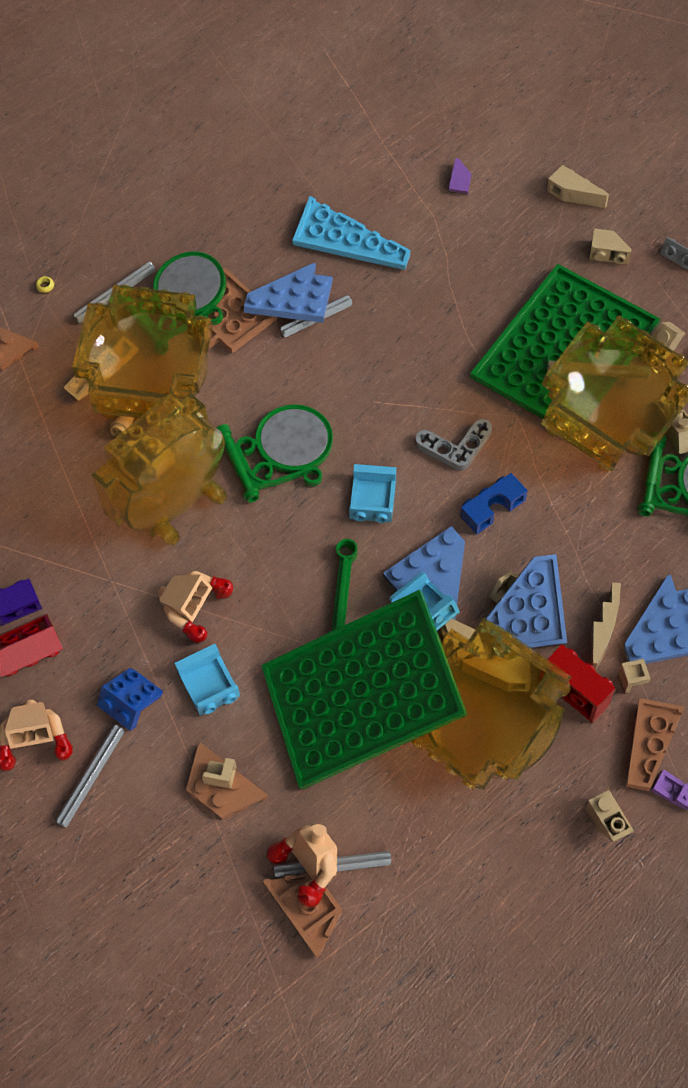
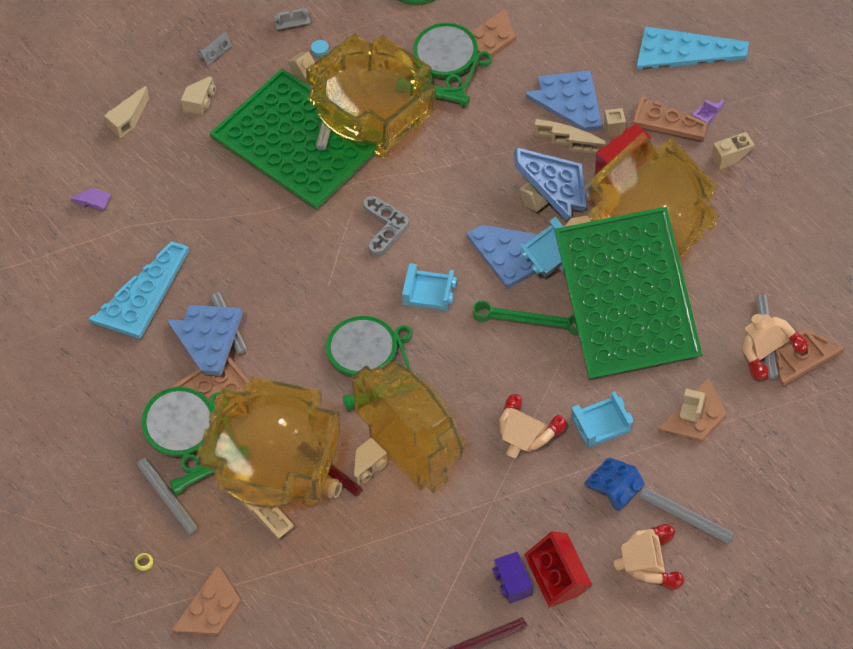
camera: 85 degrees left, 5 degrees down
(505, 491) = (454, 212): blue arch -> none

